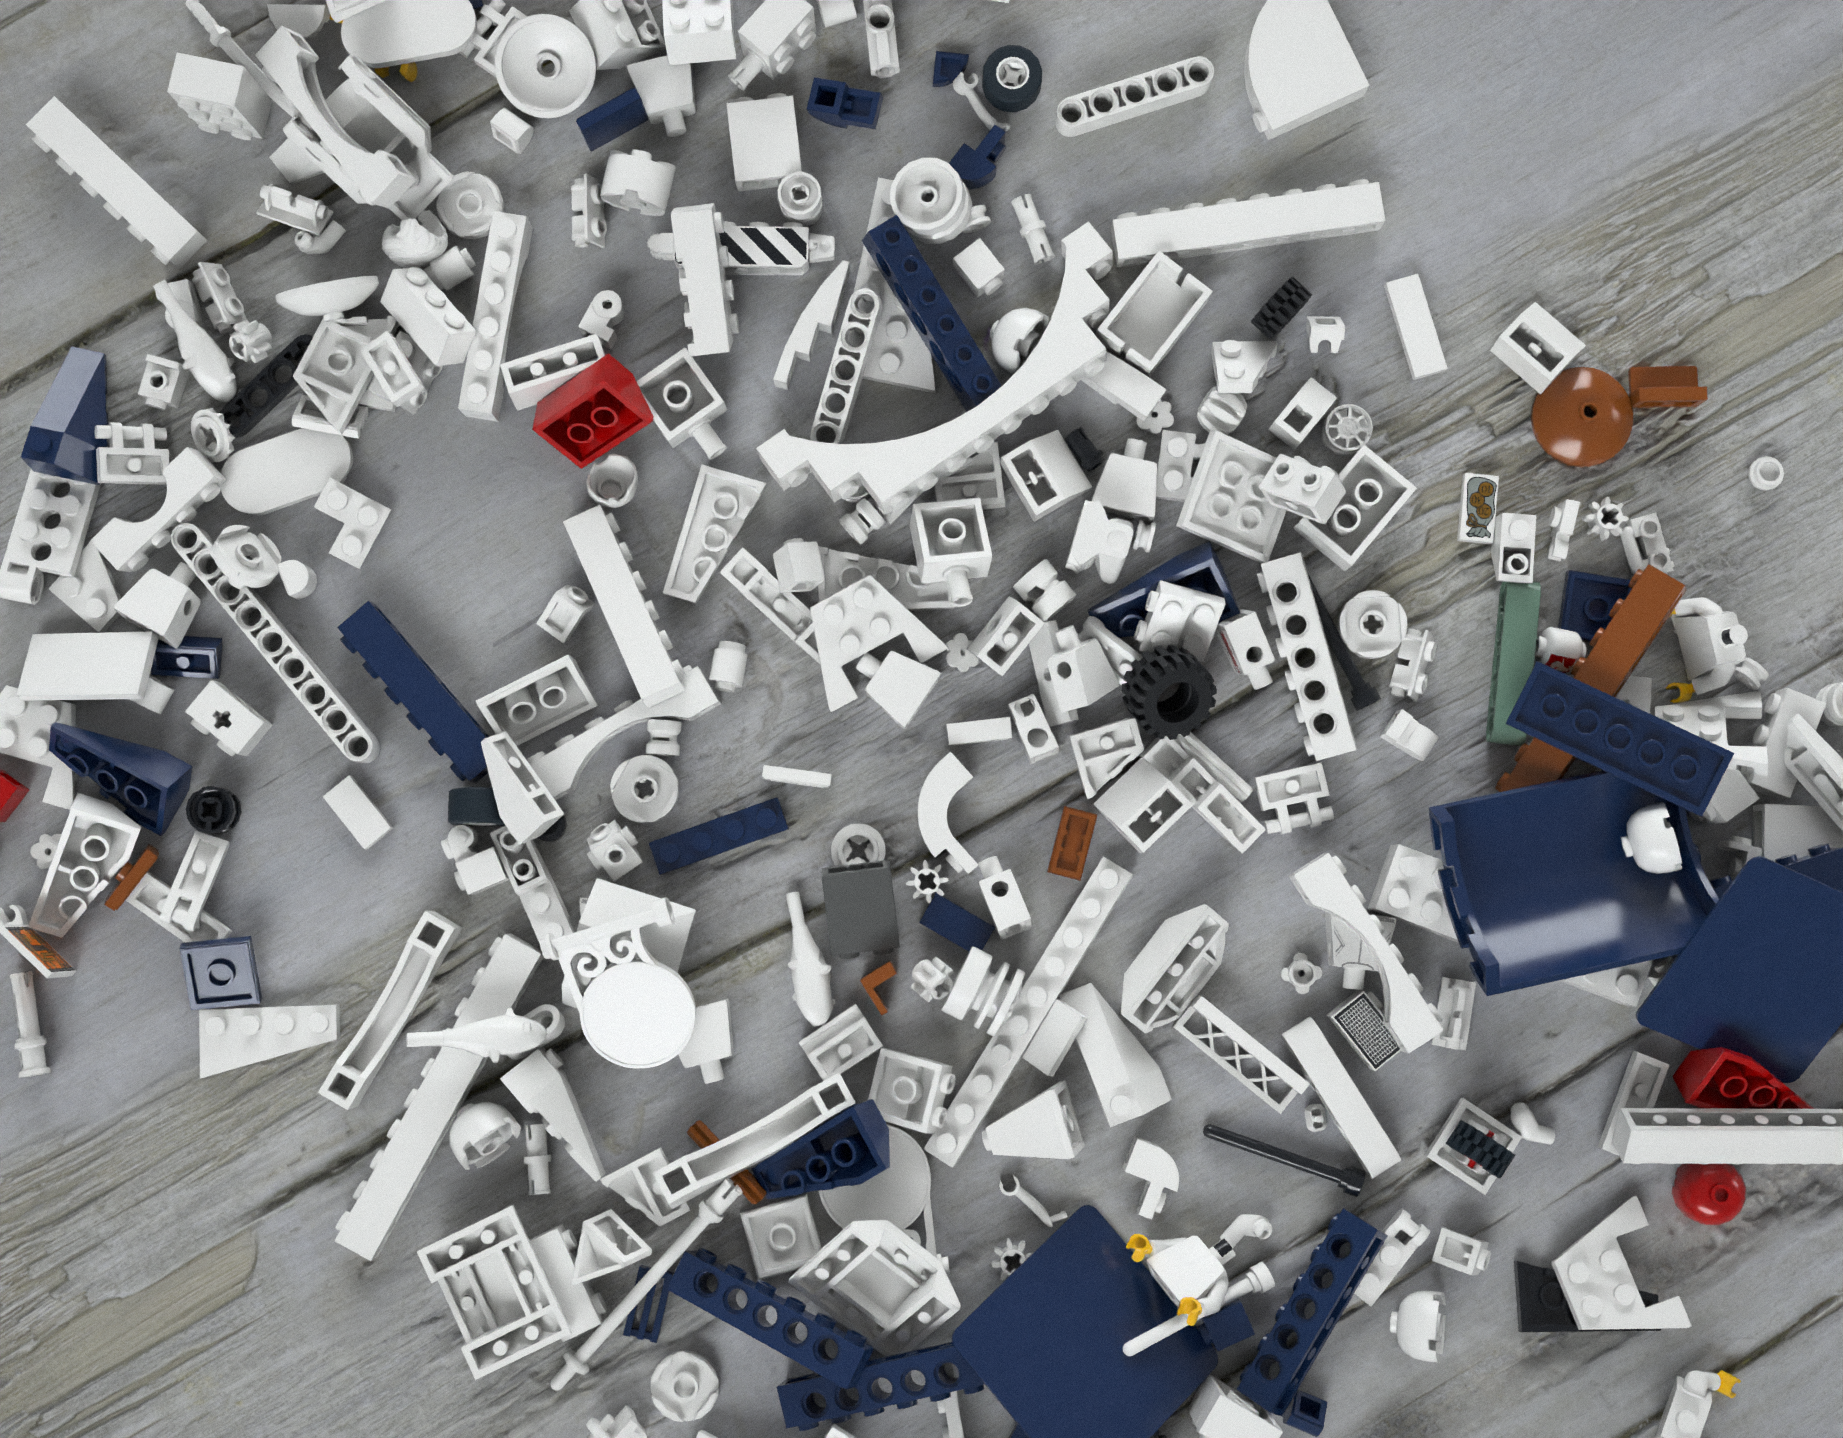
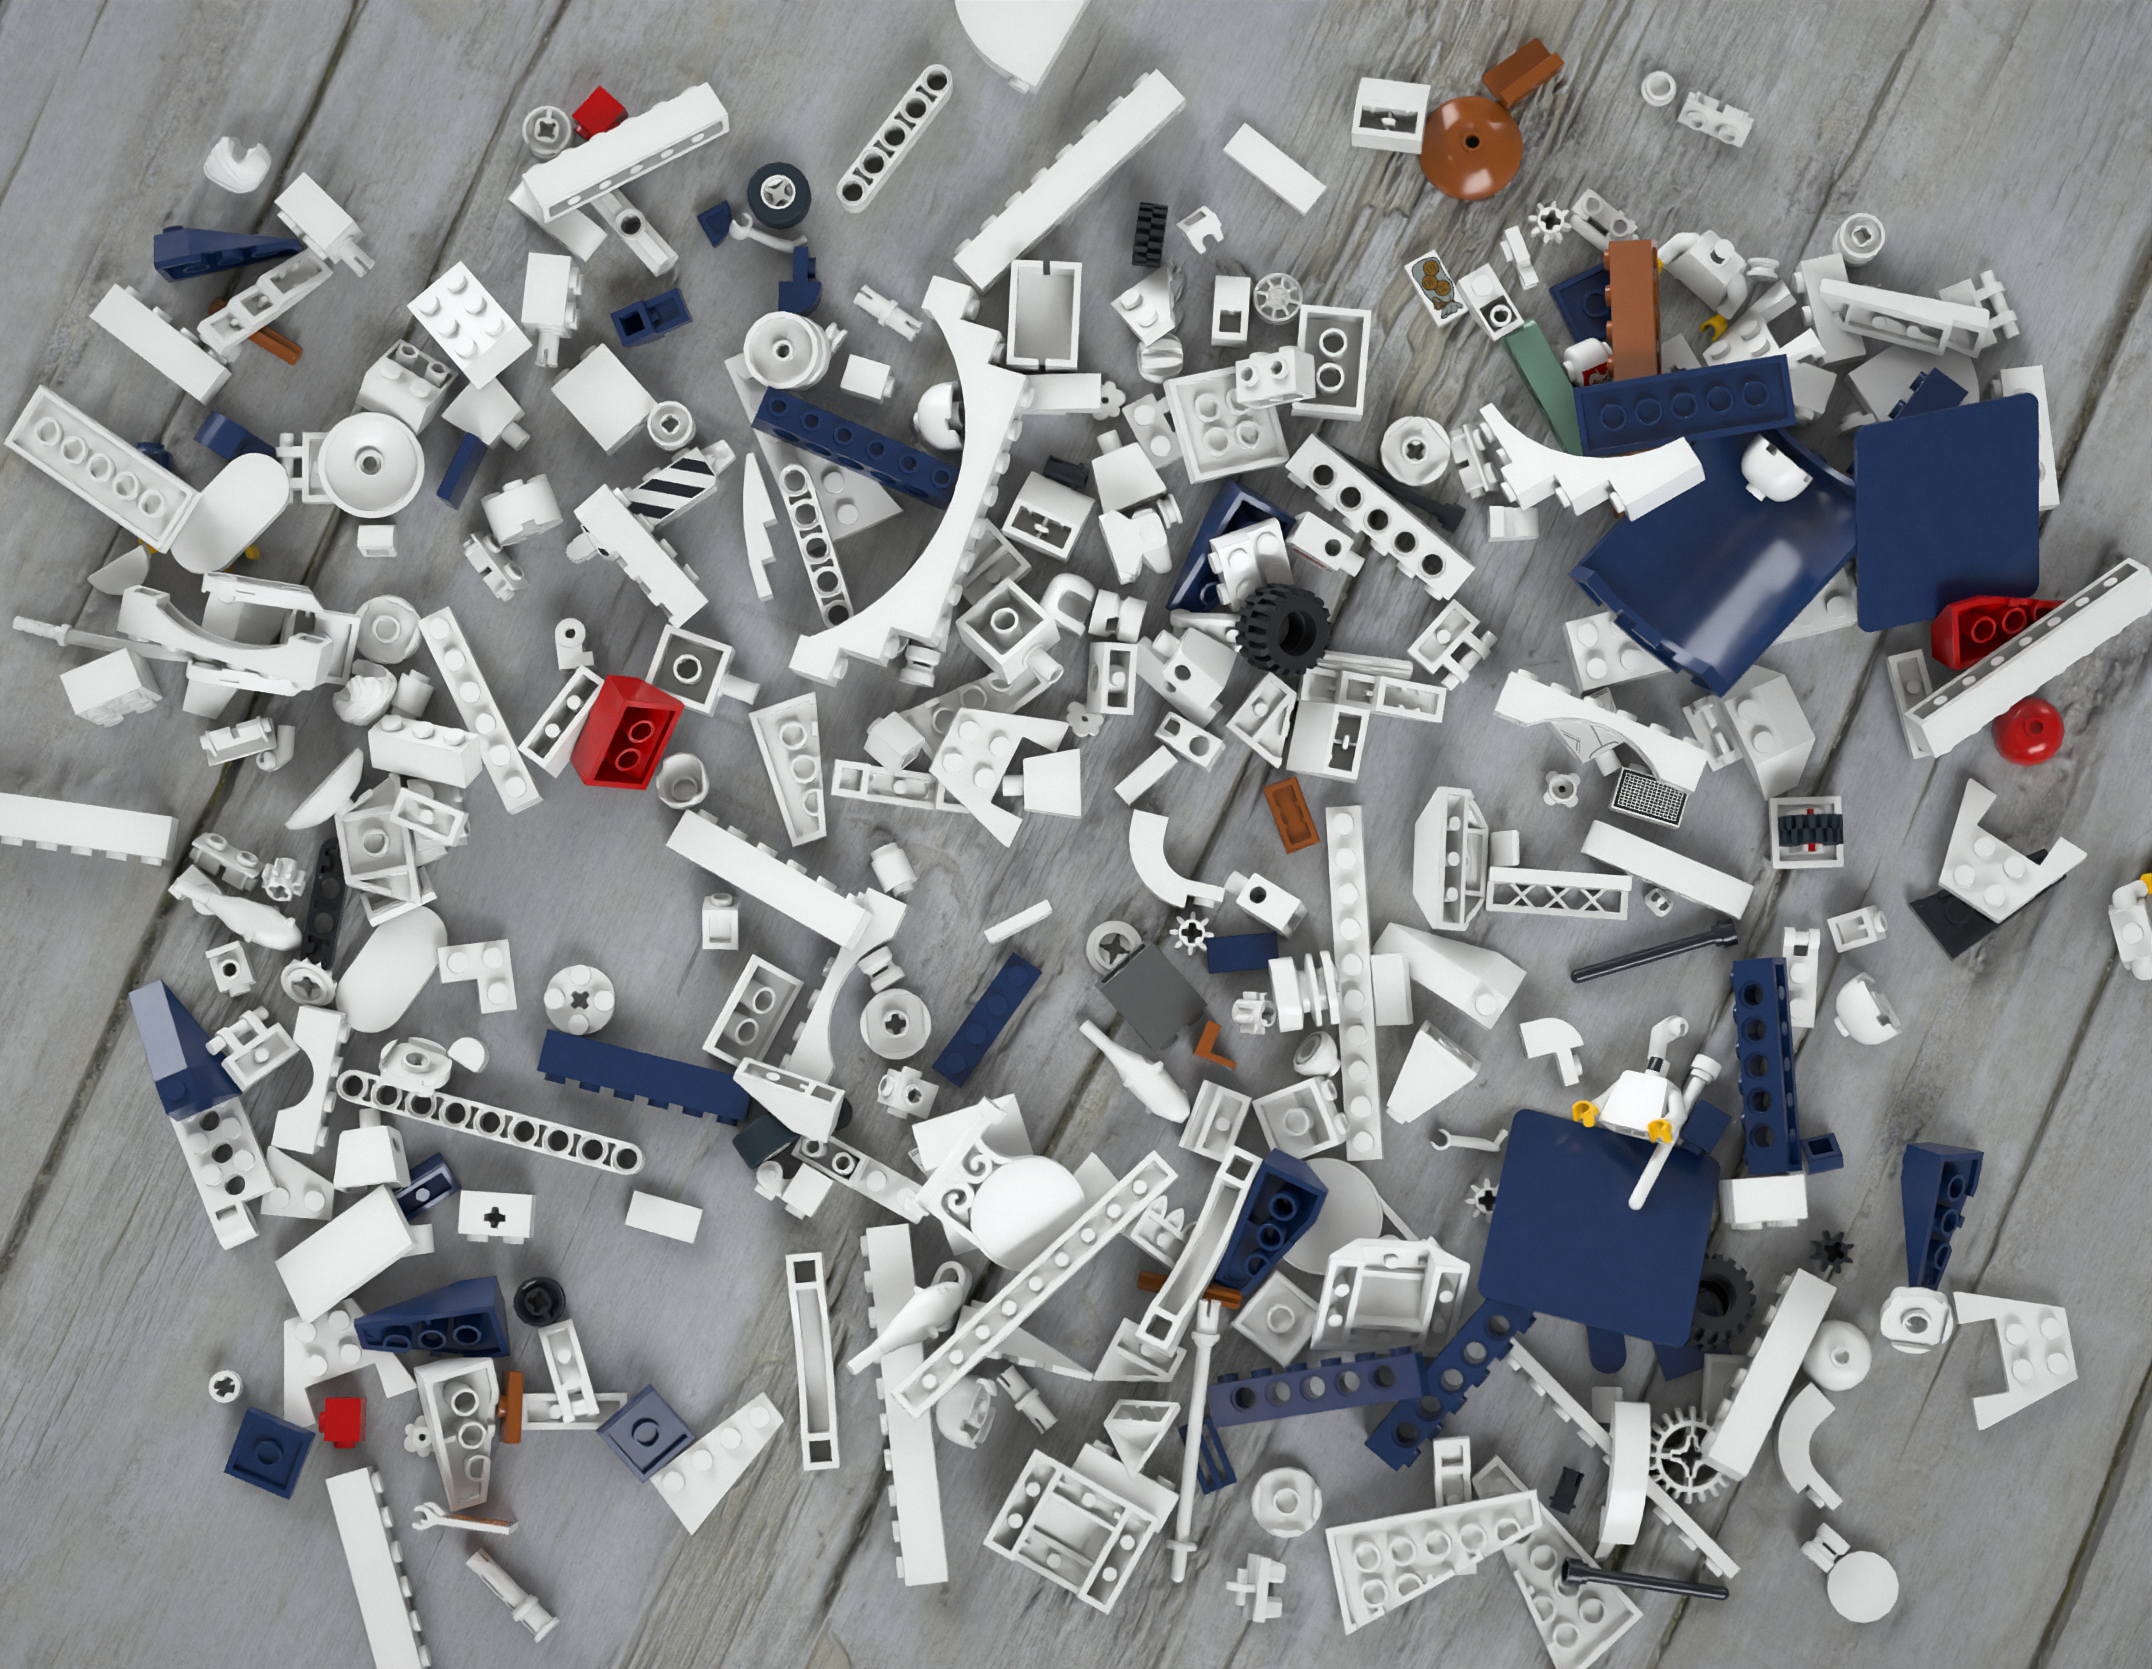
camera: 30 degrees left, 0 degrees up
(398, 584) = (600, 1000): none -> white plate
(599, 1076) = (1034, 1285): none -> white plate
(733, 1103) = (1160, 1234): none -> white plate
(958, 1048) = (1317, 1056): none -> white brick
(1014, 552) = (1069, 602): none -> white helmet
(1222, 989) = (1504, 849): none -> white slope
(1500, 1044) = (1768, 729): none -> white wedge
(1527, 1126) = (1840, 784): white arm -> none
(1530, 768) = (1630, 482): none -> white arch
(1787, 519) = (1701, 114): none -> white hinge

